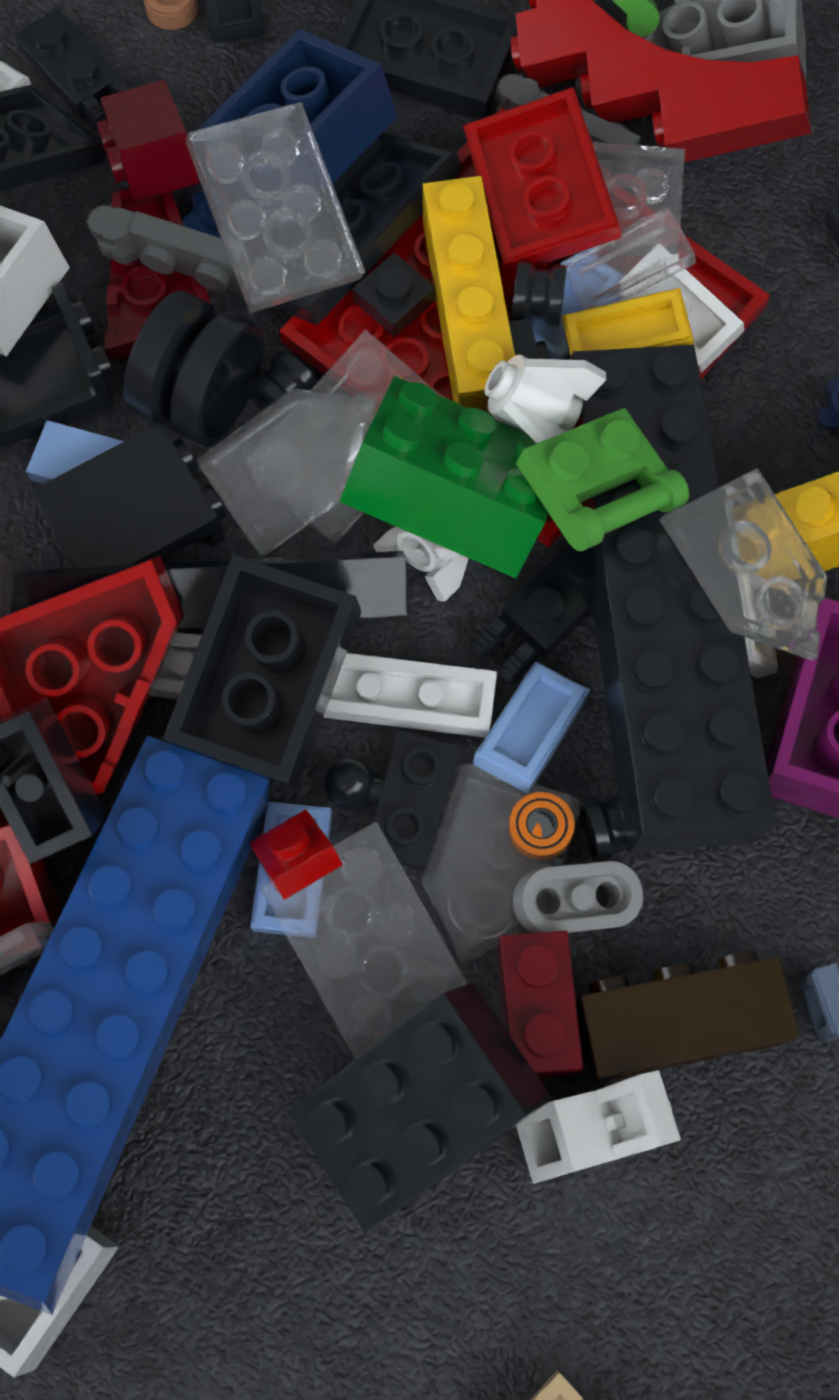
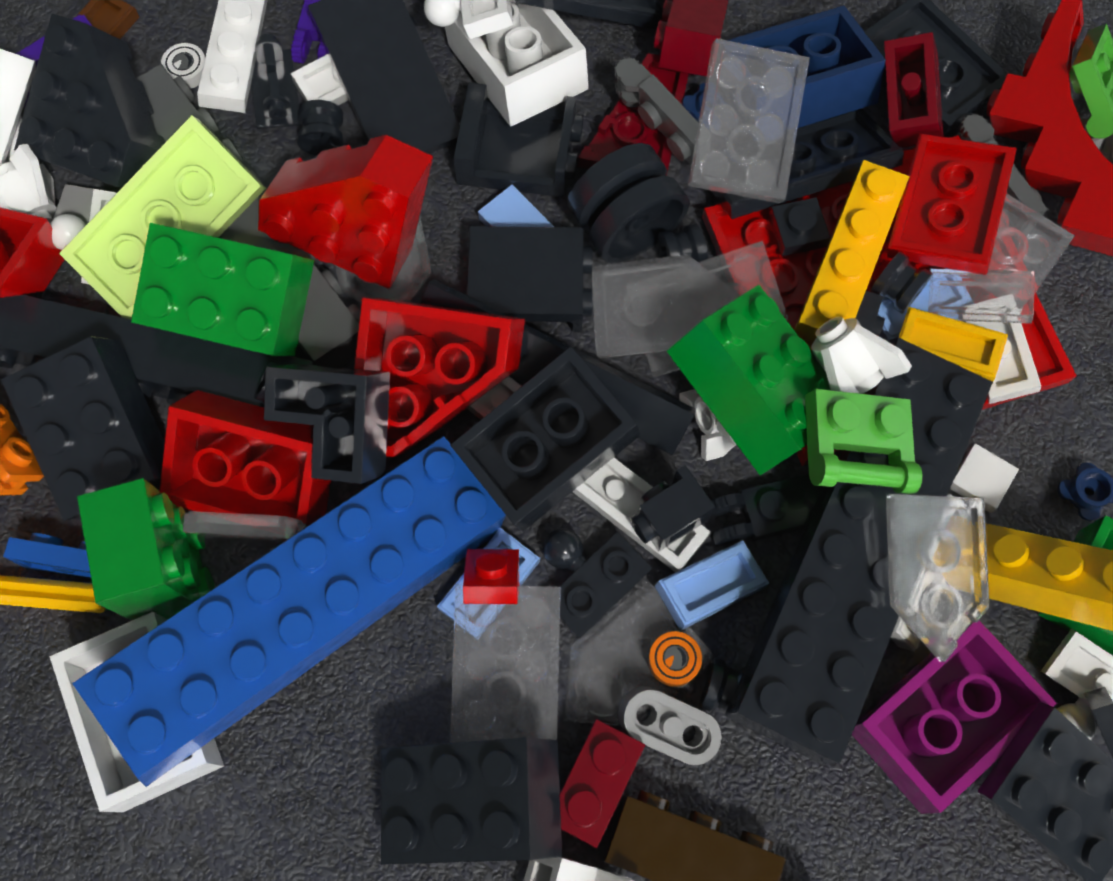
camera: 30 degrees right, 0 degrees up
(427, 80) = (913, 88): none -> dark red brick
(445, 670) = (672, 510): none -> black brick
(740, 449) = (984, 477): none -> white tile

